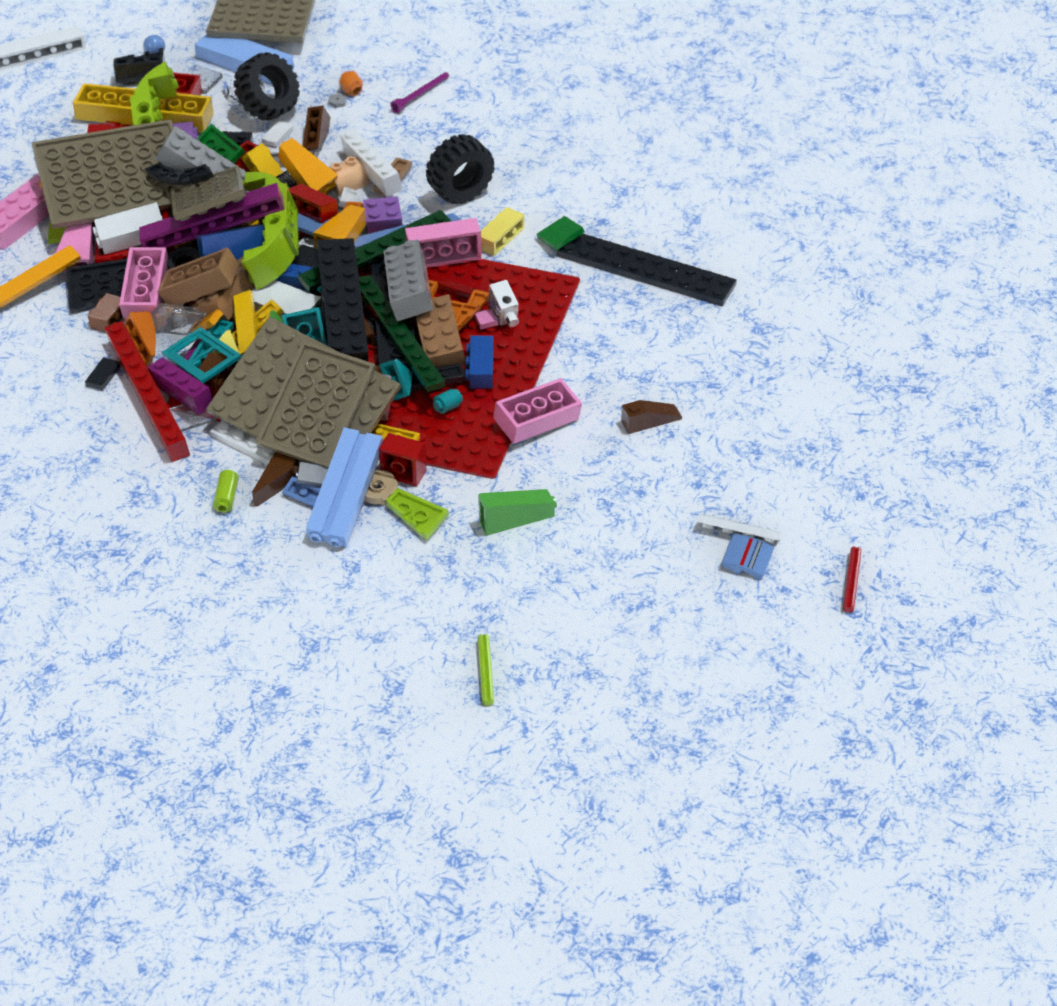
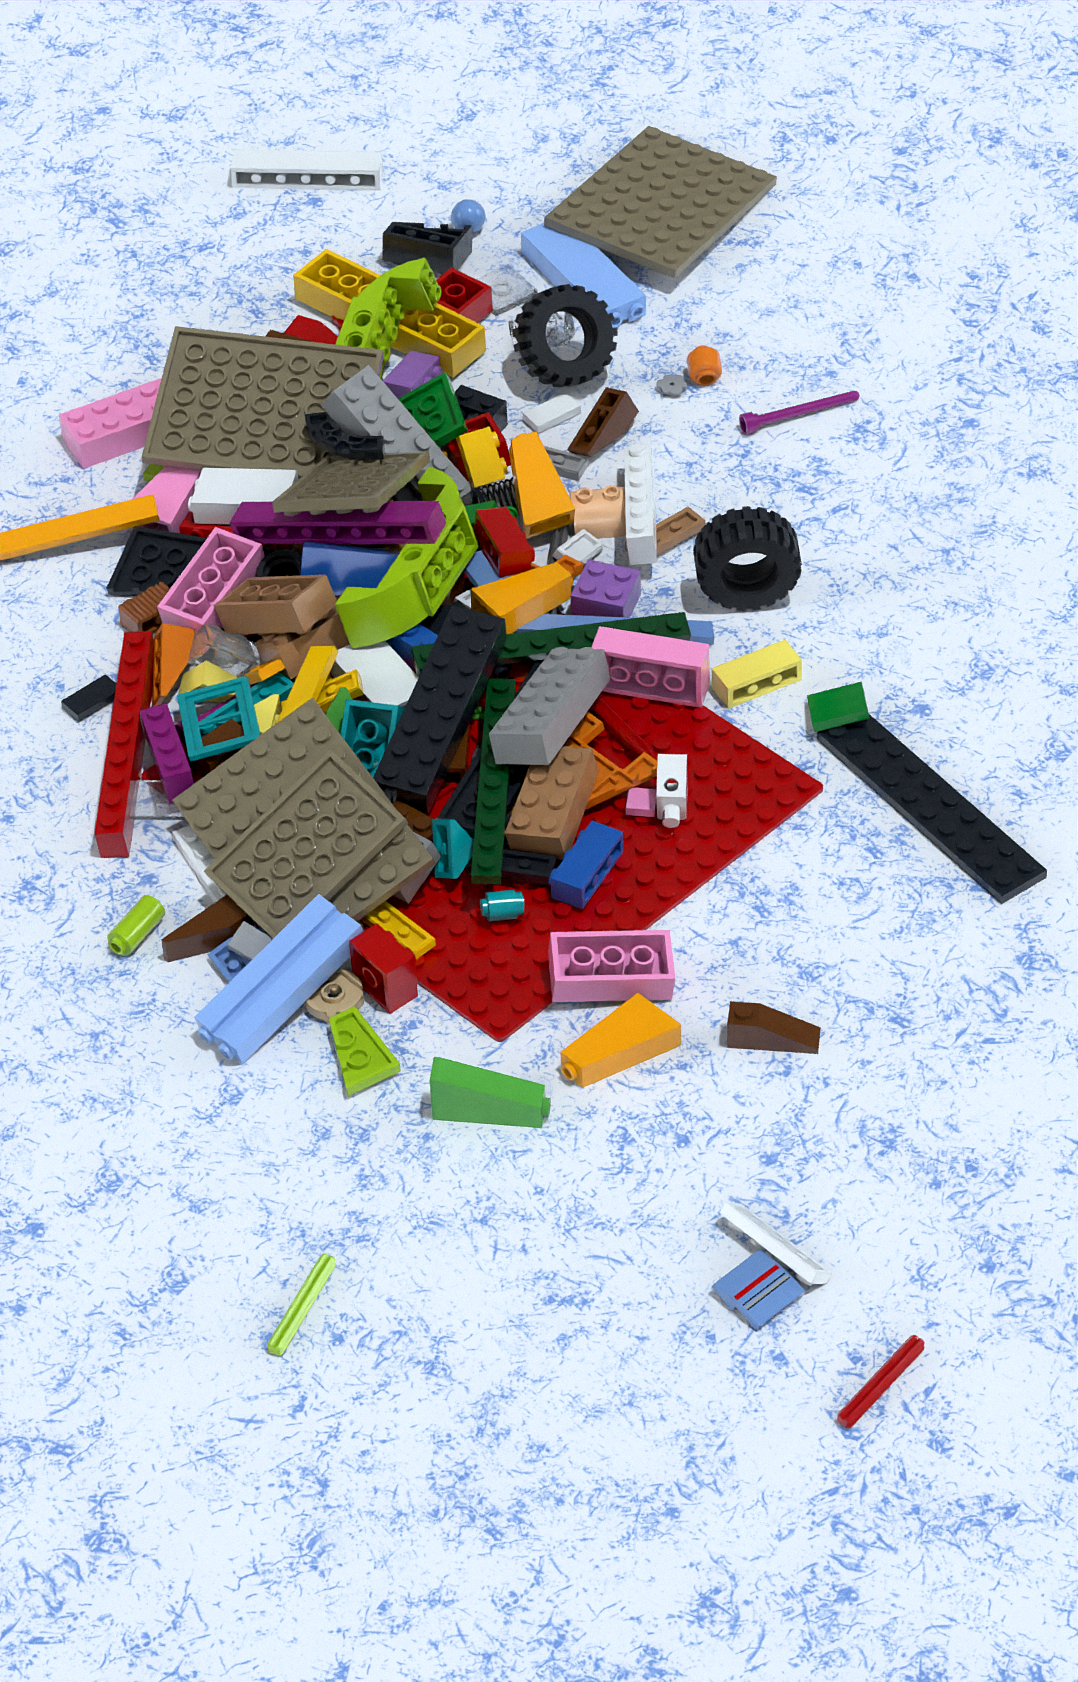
camera: 30 degrees right, 0 degrees up
(168, 338) = (203, 676): none -> light yellow slope
(570, 449) = (620, 1041): none -> light orange slope

